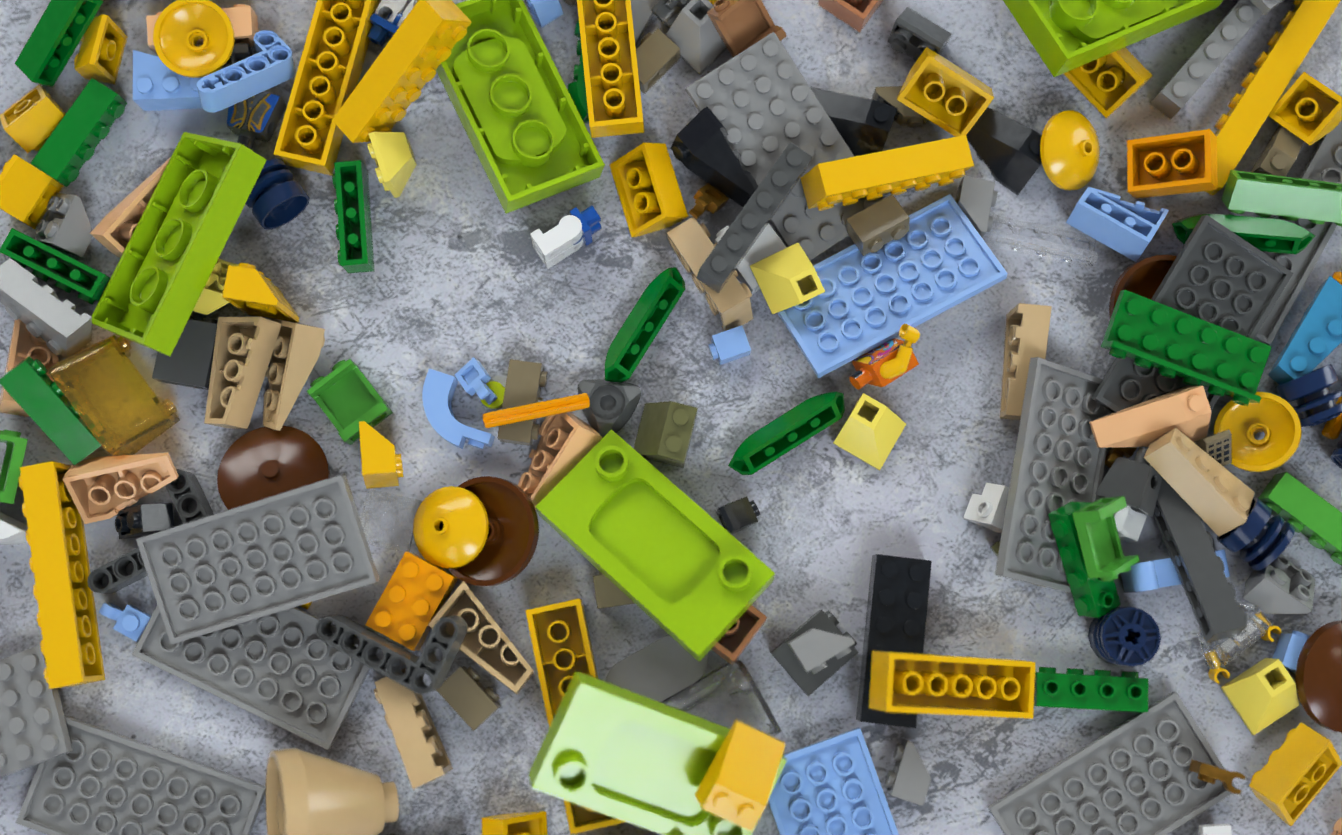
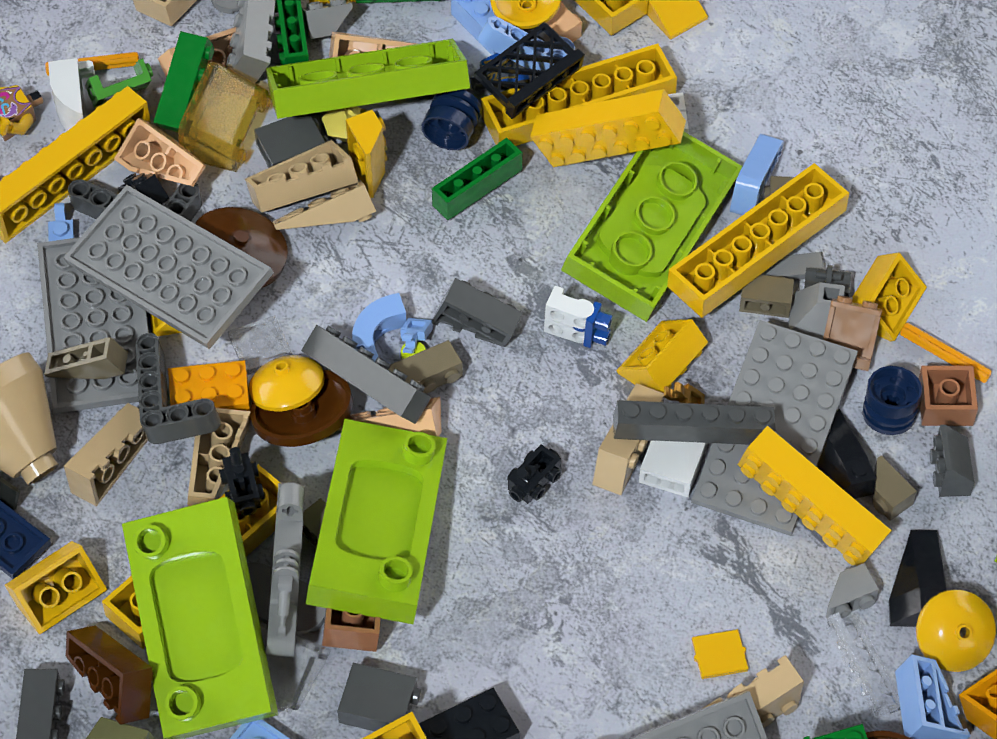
camera: 55 degrees right, 25 degrees down
(300, 81) = (539, 86): none -> black fence
(304, 692) = (88, 361): none -> dark tan slope
(348, 399) = (334, 263): bright green panel -> none
(379, 459) = (300, 300): yellow slope -> none
(393, 160) = (540, 175): light yellow slope -> none
(469, 696) = (161, 478): dark tan brick -> none
(496, 314) = (477, 312): none -> dark grey wedge
(500, 456) = (367, 374): none -> brick
(533, 638) = (240, 477): none -> black brick
(536, 410) = (416, 373): light orange axle -> none
(610, 403) = (469, 433): dark grey hat -> none
(643, 325) = (550, 415): green brick -> none
(653, 656) = (285, 570): none -> light grey beam
(666, 432) = (477, 485): olive slope -> none
(693, 386) = (527, 481): none -> black brick
(708, 155) = (723, 367): black wedge -> none
(729, 345) = (583, 486): light blue brick -> none
(738, 515) = (446, 571): black slope -> none
(741, 776) = (235, 674): yellow slope -> none
(787, 278) = (667, 483): light yellow slope -> none
(787, 432) = (546, 569): green brick -> none
(817, 647) = (381, 685): light grey slope -> none
(834, 26) = (891, 400): none -> dark blue wheel
(870, 431) = (594, 628): light yellow slope -> none
(878, 225) = (768, 525): dark tan brick -> none
(887, 361) = (657, 594): torso -> none
(900, 284) = (724, 563): light blue plate -> none
(945, 93) = (917, 503): yellow slope -> none
(953, 345) = (719, 654): none -> yellow piece

